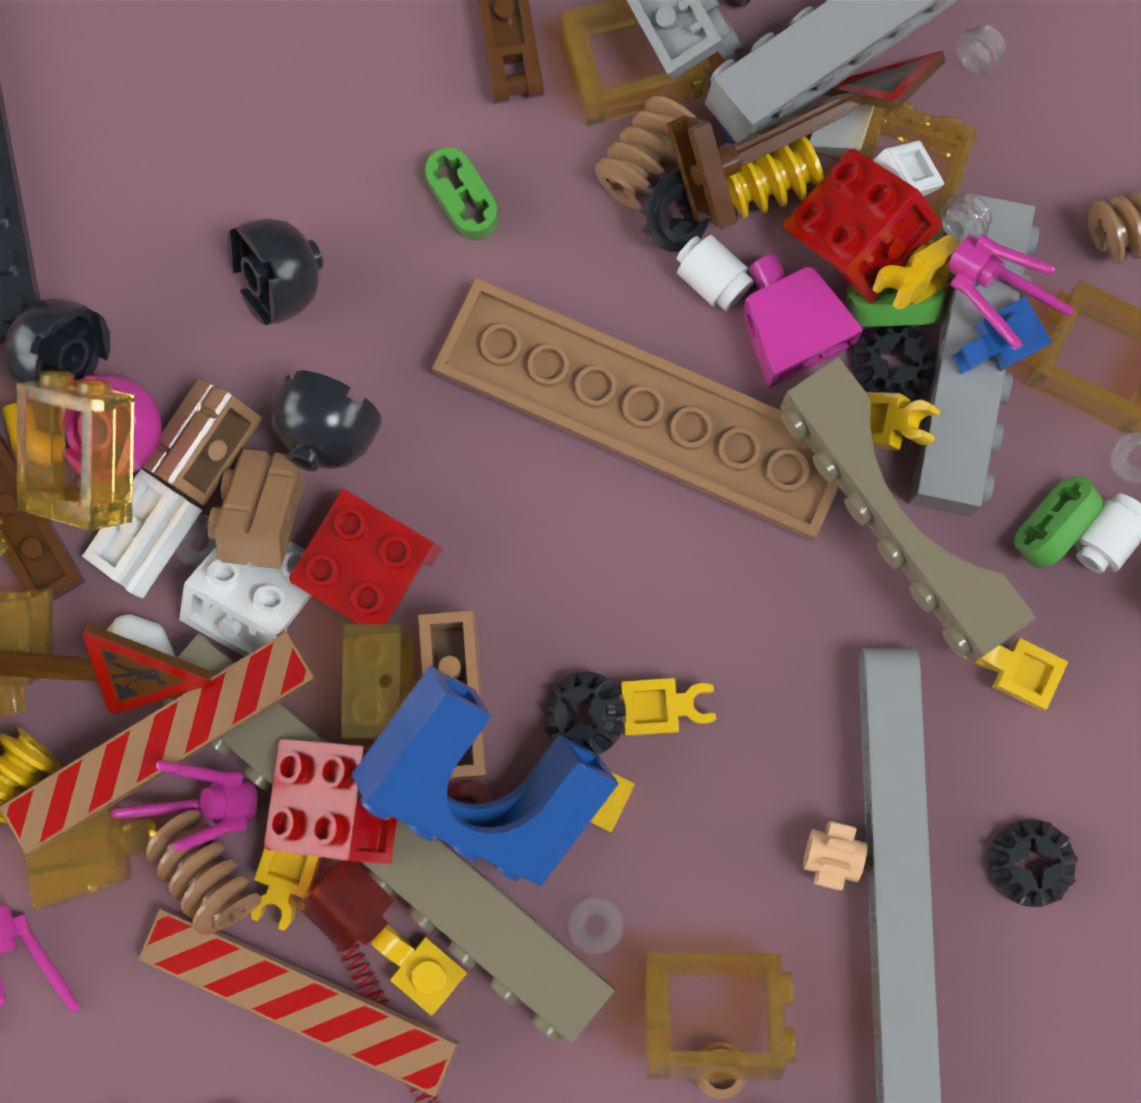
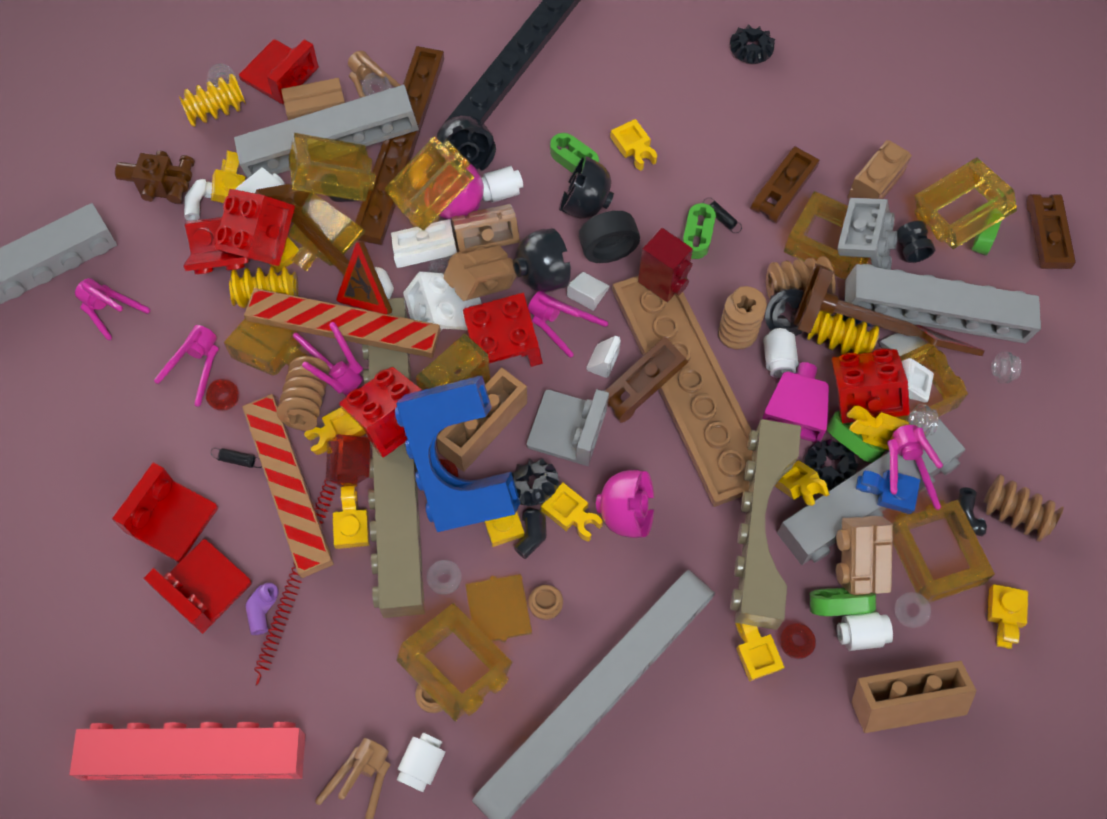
camera: 40 degrees right, 15 degrees down
(80, 973) = (219, 387): none -> clear red plate
(156, 357) = (501, 184): none -> white brick
(198, 1026) = (236, 458): none -> black piece
(202, 217) = (571, 157): none -> bright green beam
(262, 139) = (634, 141): none -> yellow plate
(369, 310) = (609, 236): none -> black tyre
(381, 471) = (548, 308): none -> dark pink plant
(404, 401) = (587, 290): none -> white slope
(471, 143) = (723, 216): none -> black piece
(487, 291) = (665, 265): none -> dark red brick
(510, 472) = (604, 357): none -> white slope
(556, 603) = (568, 426): none -> light grey bracket
(593, 460) = (645, 378): none -> reddish brown plate
(636, 272) = (742, 318): none -> medium nougat piece
(643, 767) = (536, 532): none -> black arm
(691, 898) = (499, 607): none -> clear yellow piece
(721, 639) = (626, 503): none -> dark pink cylinder
(738, 840) = (545, 602): none -> medium nougat plate
(835, 855) = (582, 647): light nougat gear -> none
(1018, 884) = (679, 764): black gear -> none
(1041, 626) = (793, 650): none -> clear red plate
(1042, 445) = (865, 555): none -> medium nougat brick
(1085, 268) = (967, 501): none -> black arm

